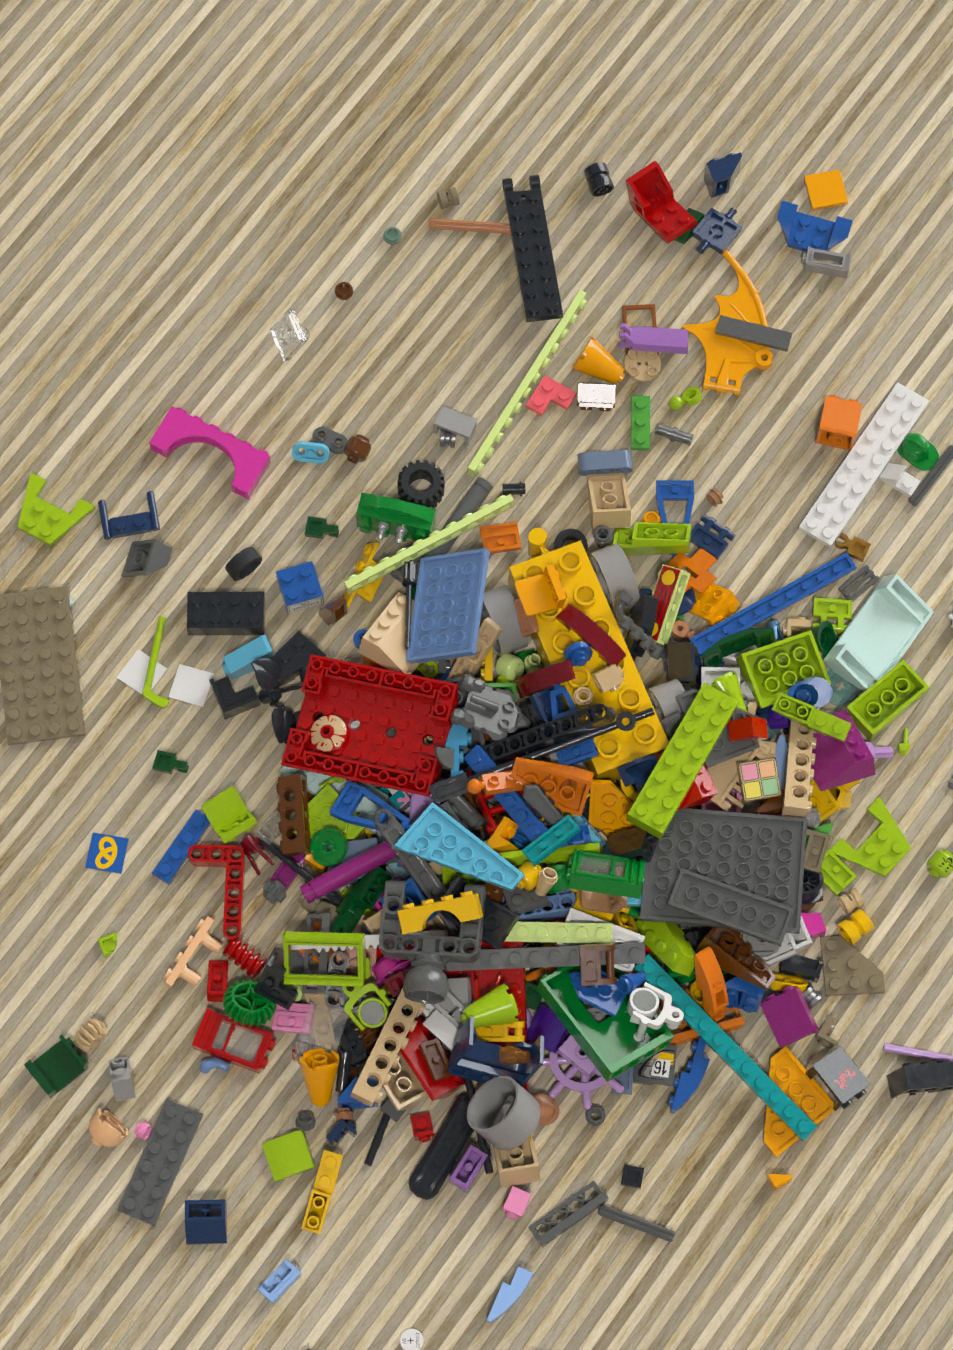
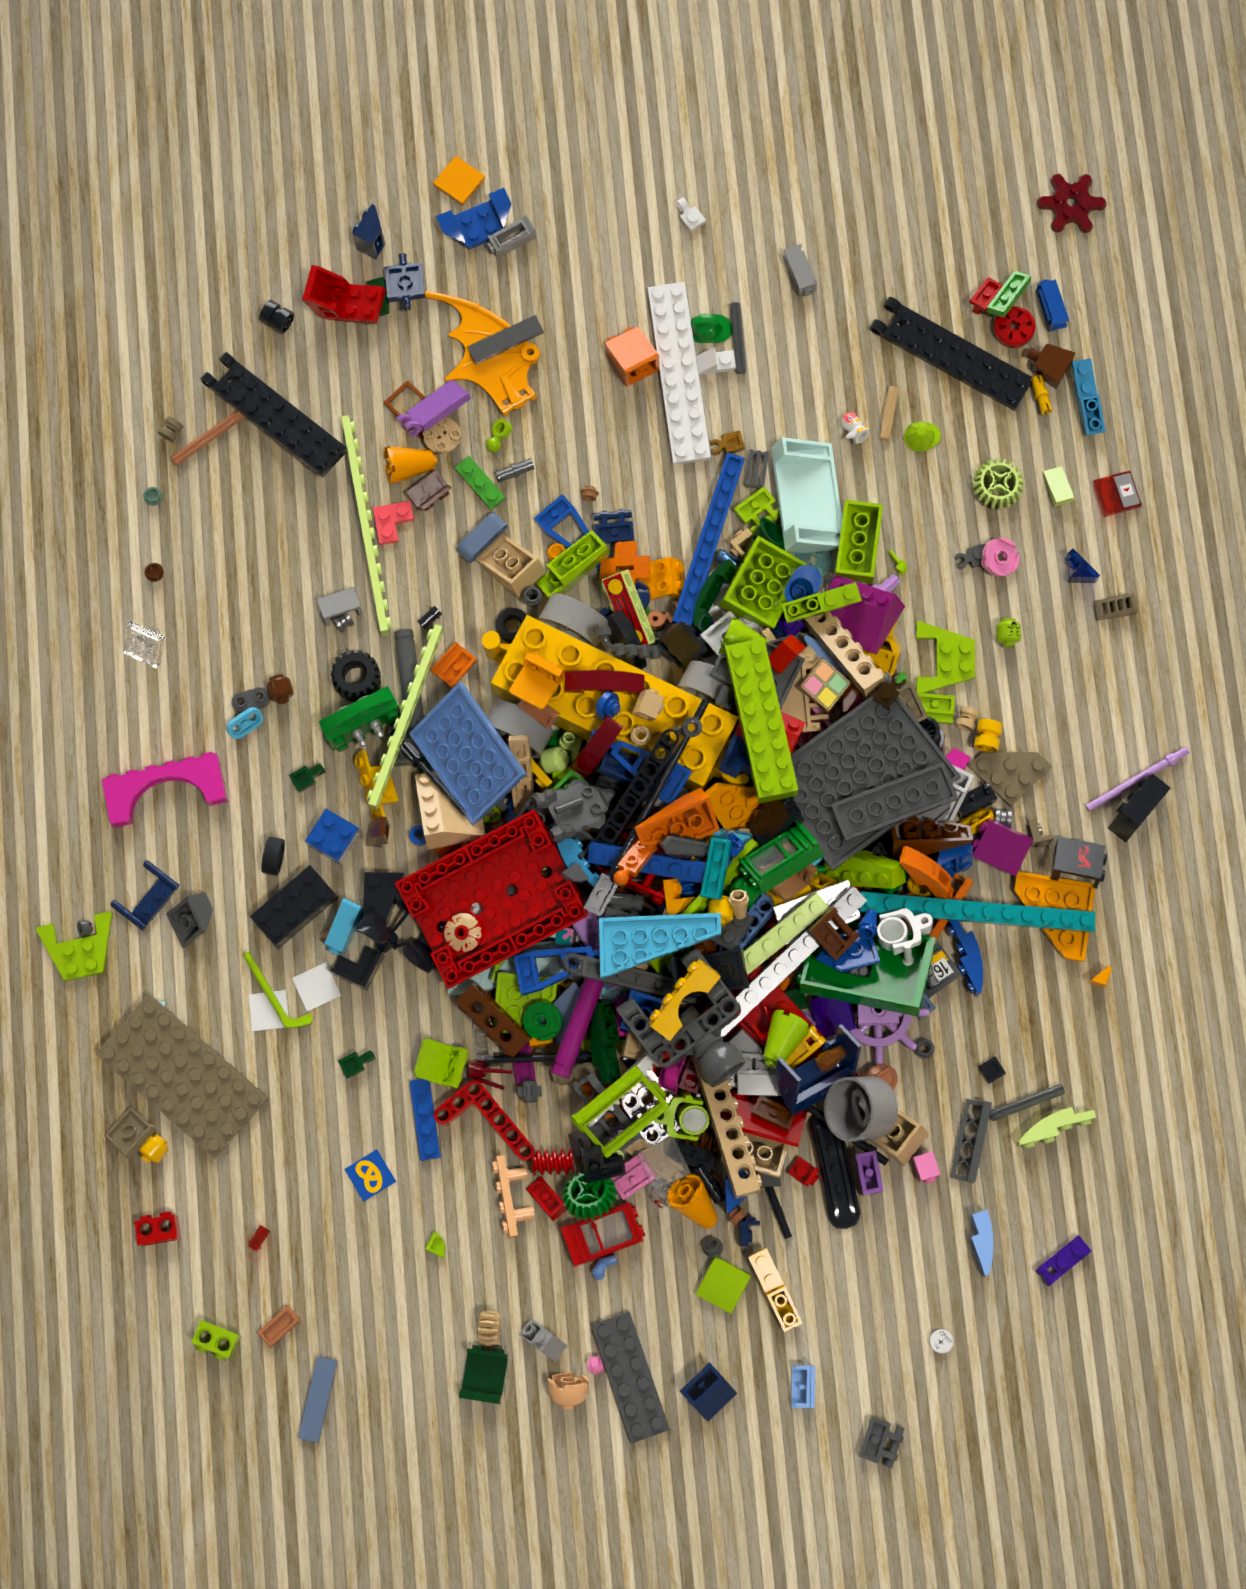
camera: 35 degrees left, 5 degrees up
(65, 502) = (84, 928): none -> dark grey hinge
(633, 1254) = (1047, 1128): none -> yellowish green slope
(798, 823) = (888, 693): none -> dark brown plate

